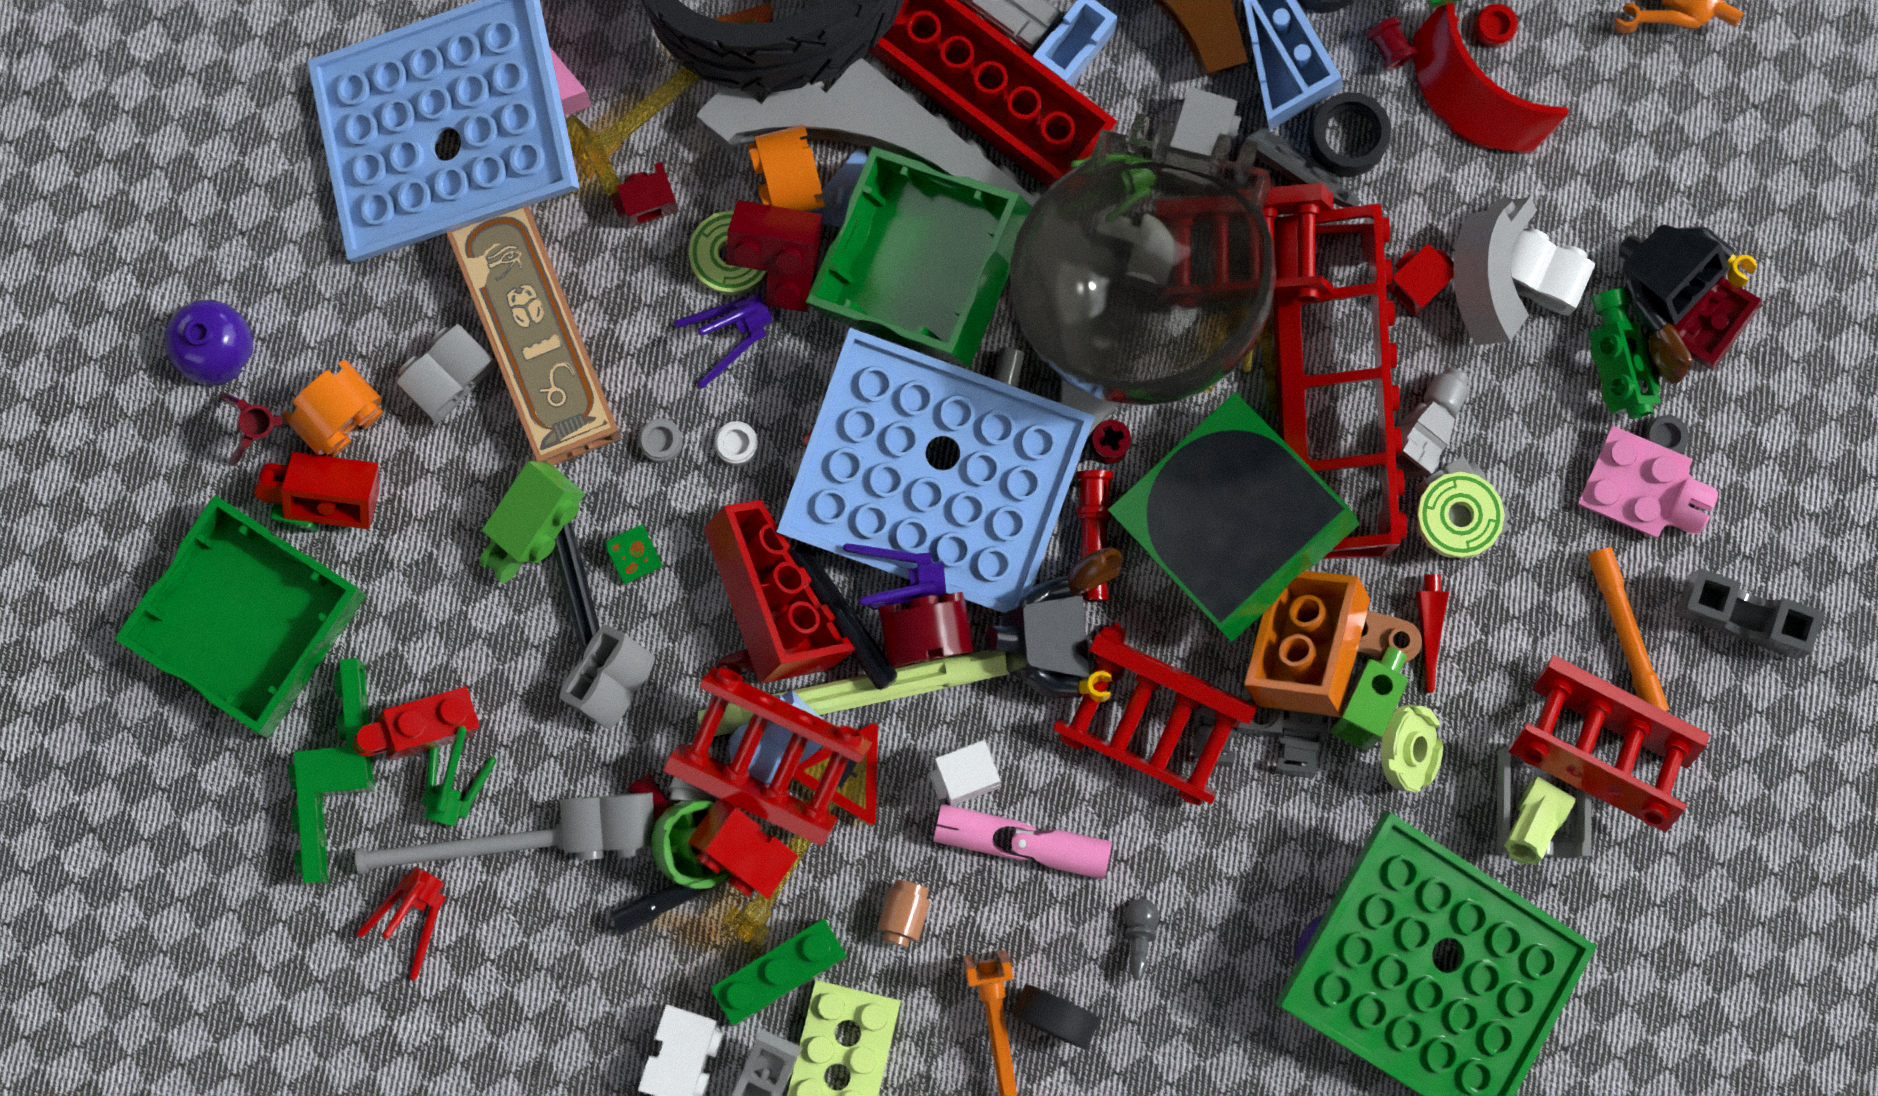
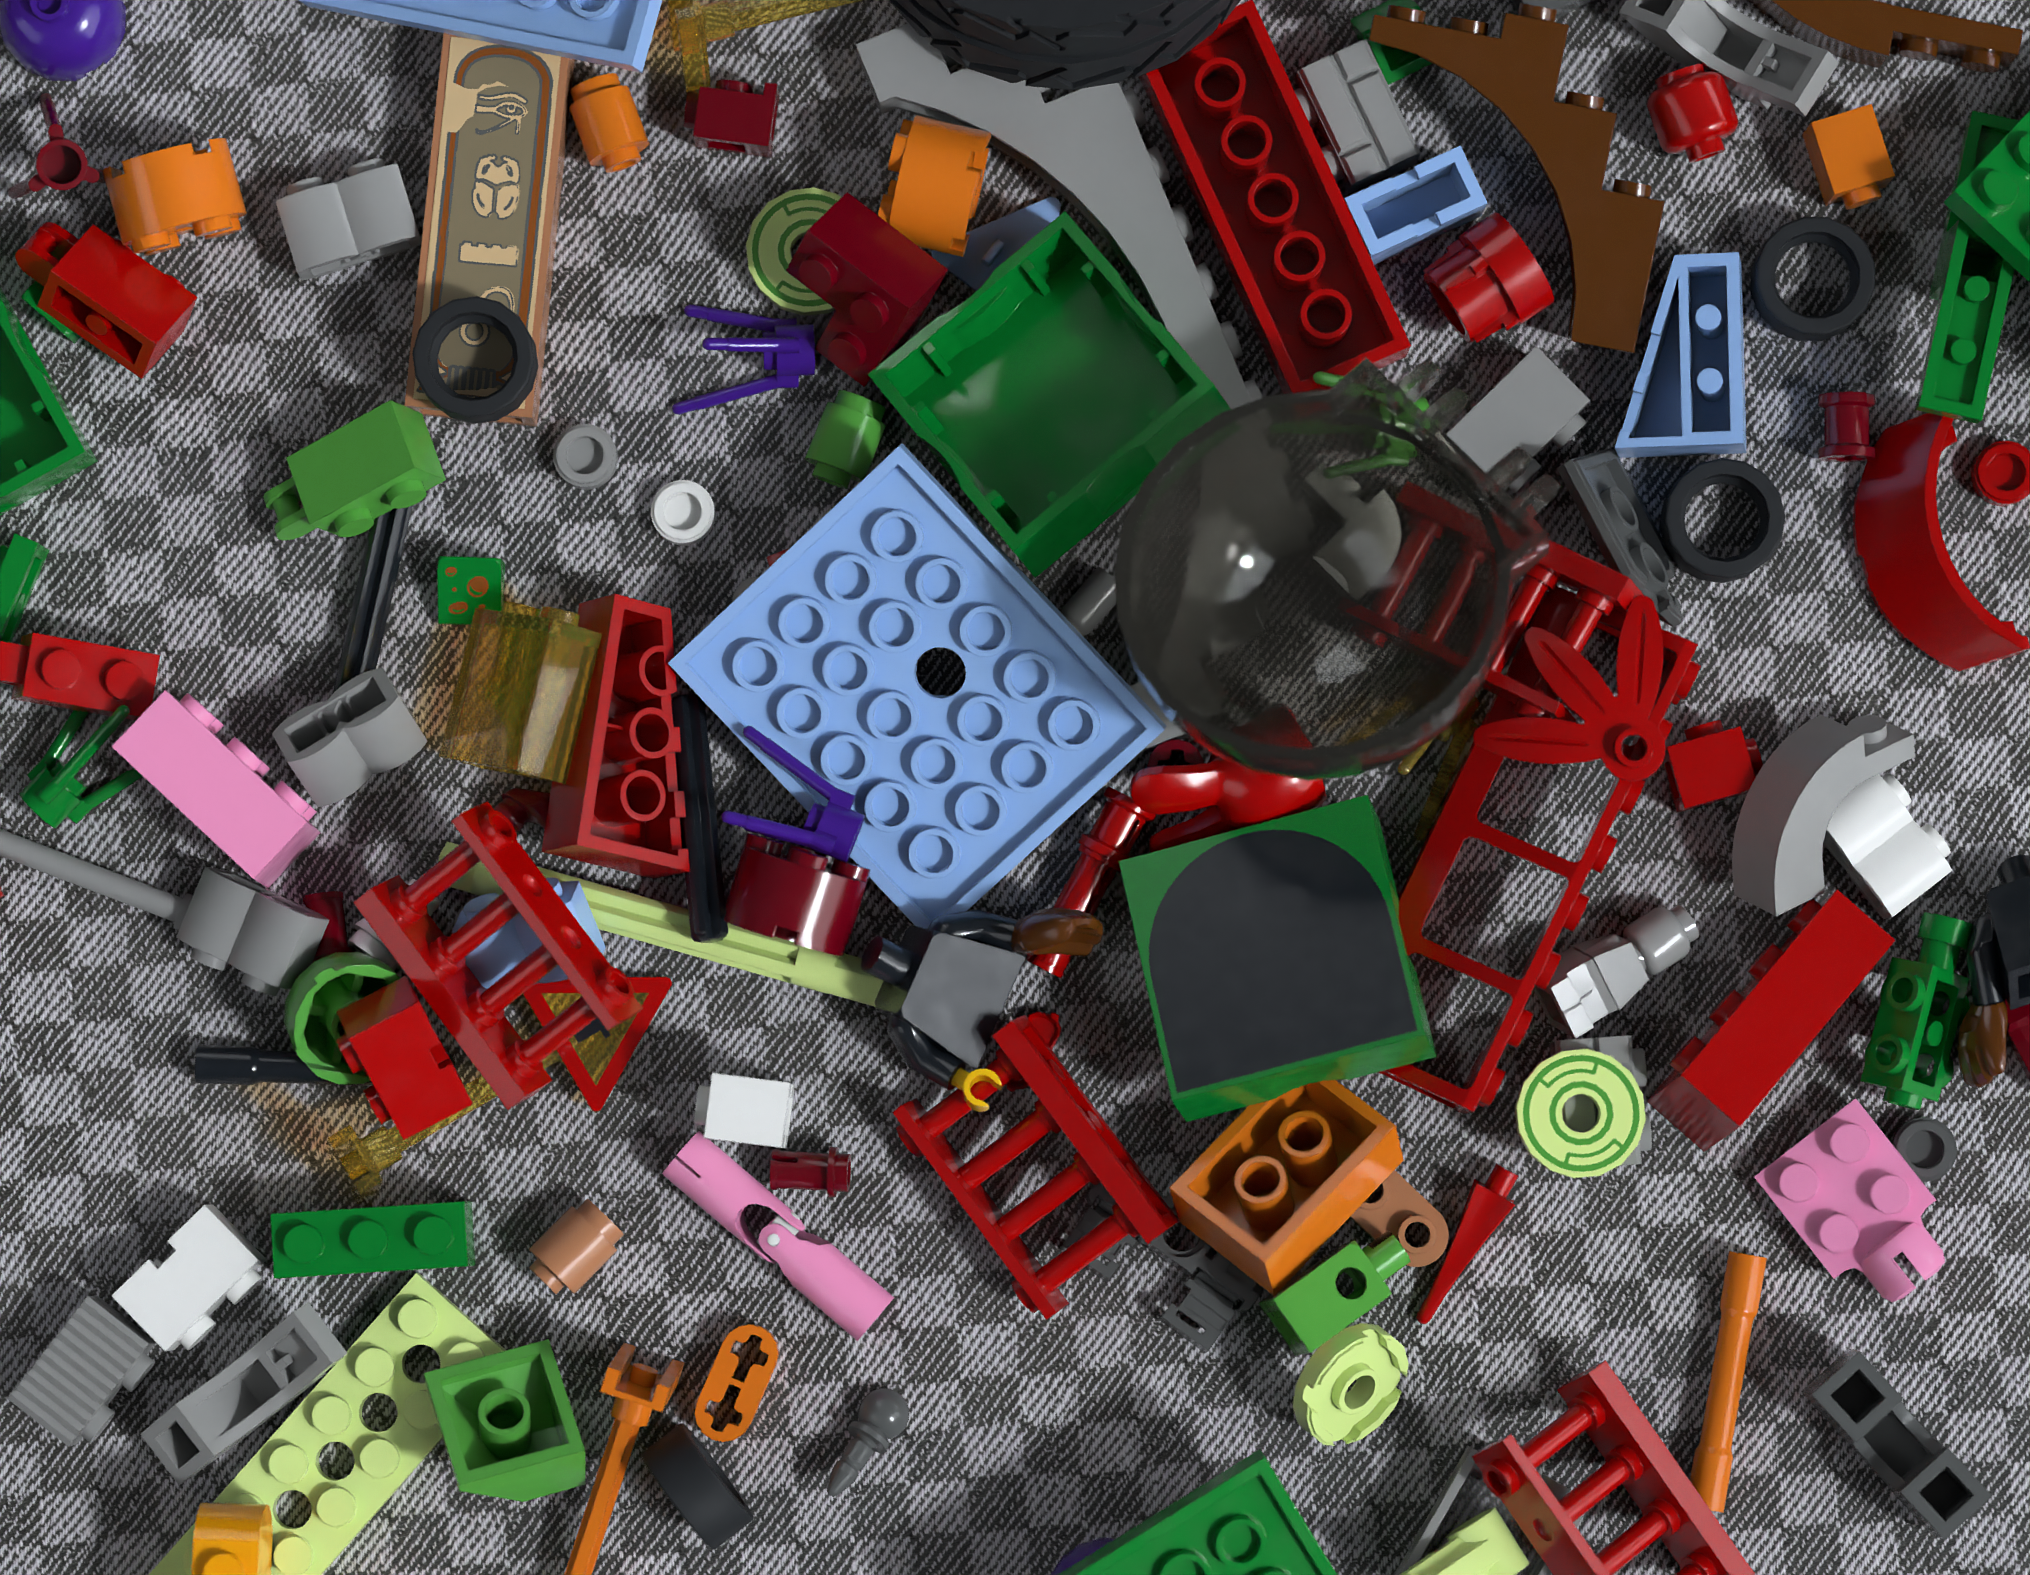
camera: 30 degrees right, 5 degrees up
(543, 746) = (219, 786): none -> bright pink brick
(559, 379) = (451, 317): none -> black tyre
(571, 237) = (608, 123): none -> orange brick
(697, 595) = (521, 692): none -> clear yellow brick
(811, 349) = (846, 439): none -> bright green brick
(922, 1039) = (508, 1424): none -> bright green slope
(1021, 792) = (811, 1171): none -> dark red pin
(1033, 944) = (722, 1376): none -> orange beam
(1140, 63) = (1488, 280): none -> red piece
(1151, 430) = (1233, 793): none -> red piece
(1331, 263) = (1582, 689): none -> red plant
(1539, 406) = (1771, 1021): none -> red wedge

